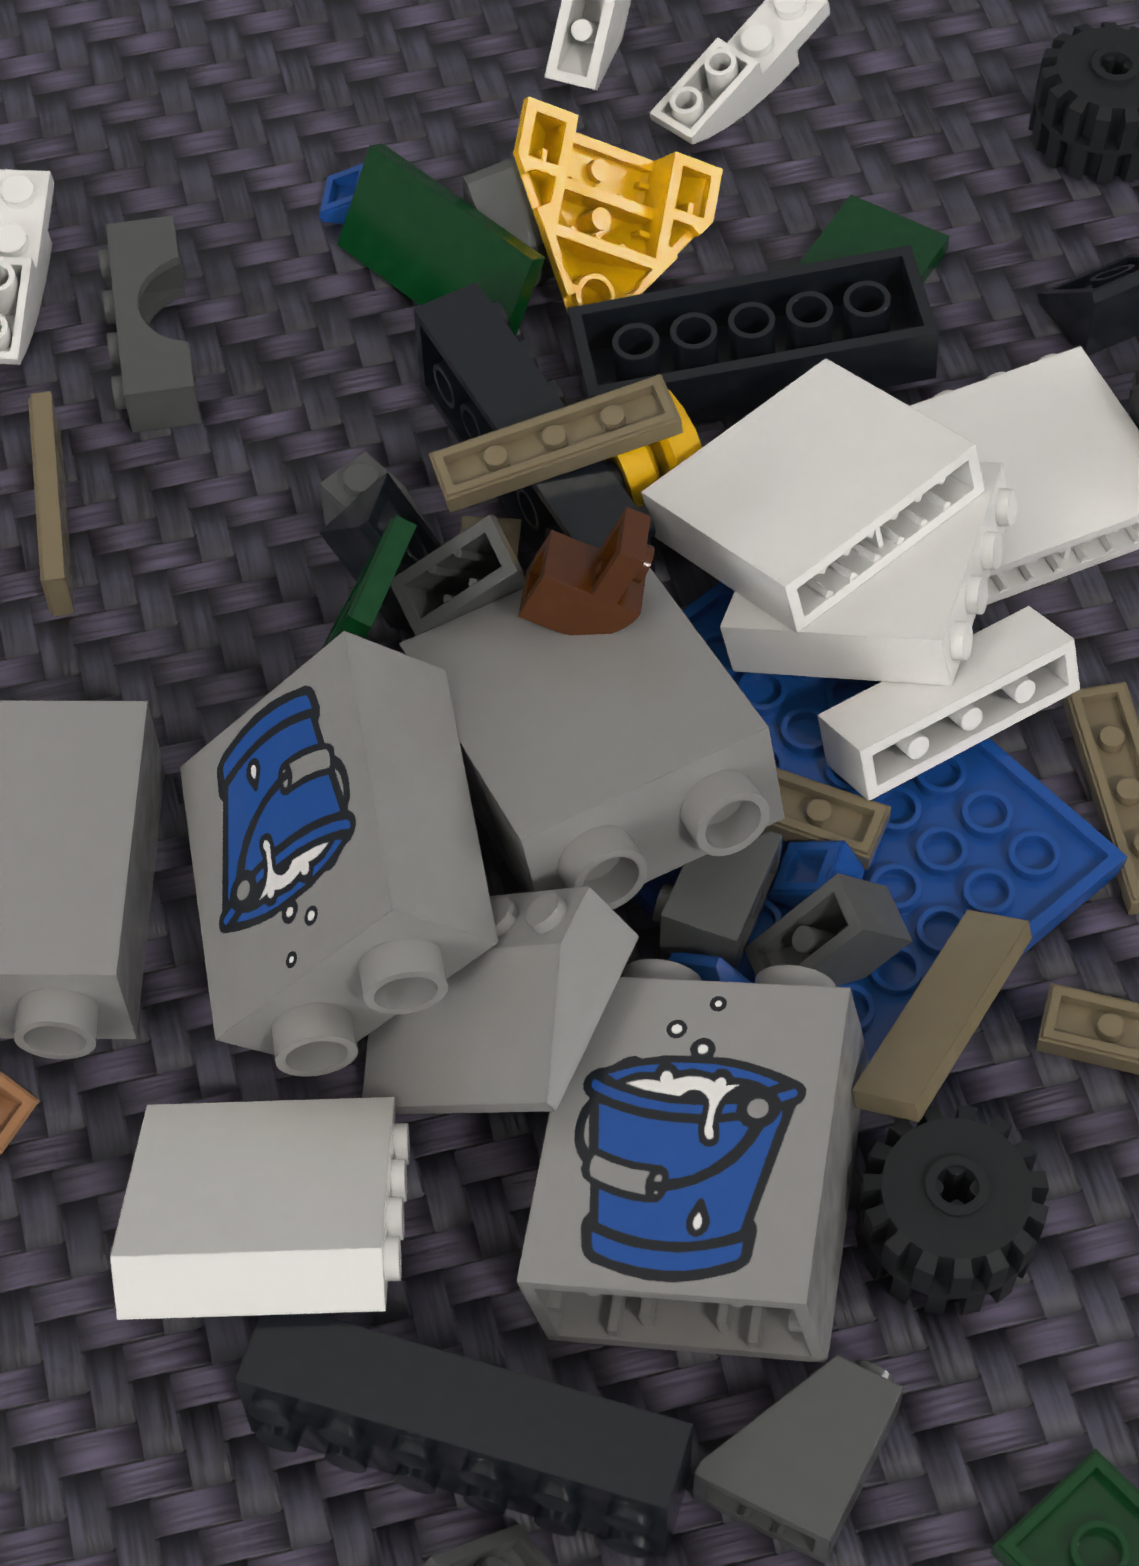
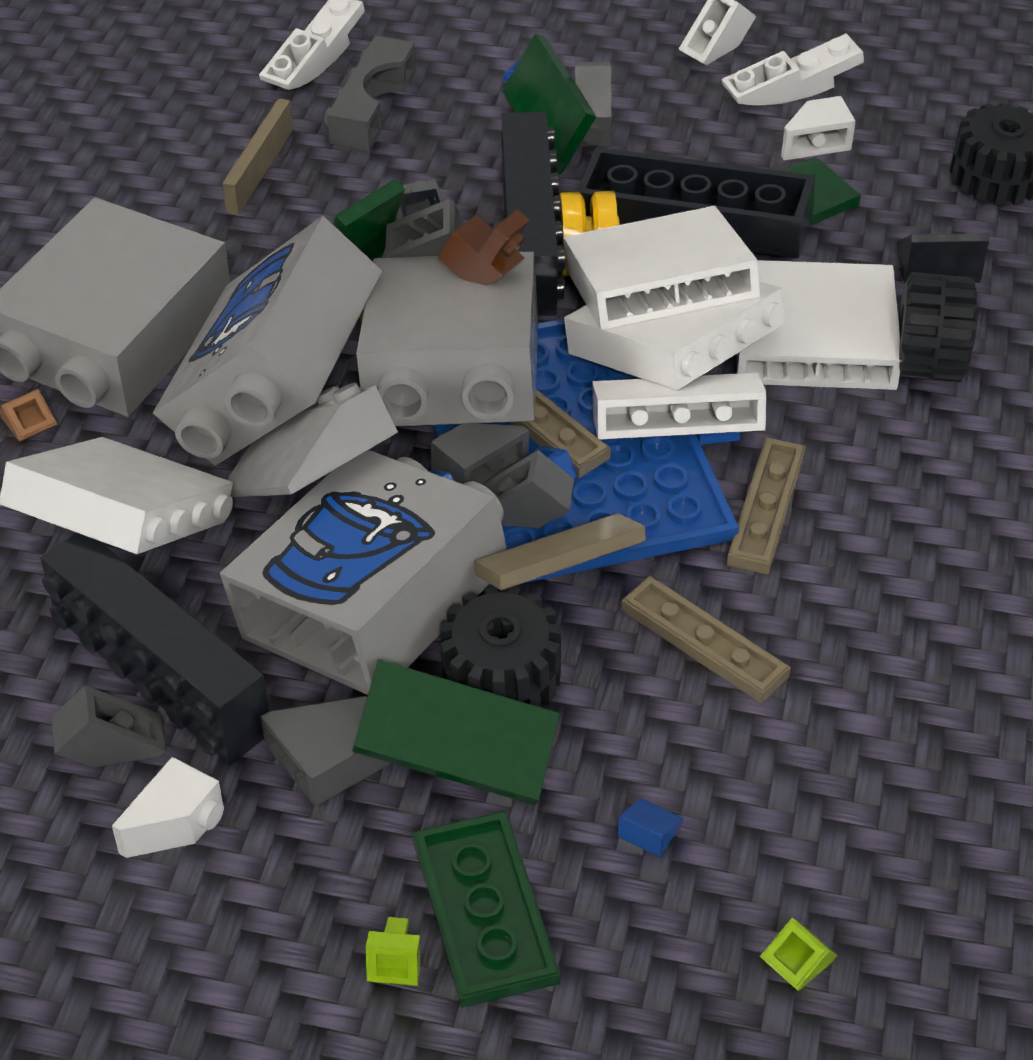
camera: 25 degrees right, 10 degrees down
(555, 443) = (532, 195): dark tan tile -> none
(607, 212) = (655, 110): yellow wedge -> none
(836, 145) = (819, 129): none -> white slope
(973, 1368) = (456, 732): none -> dark green tile

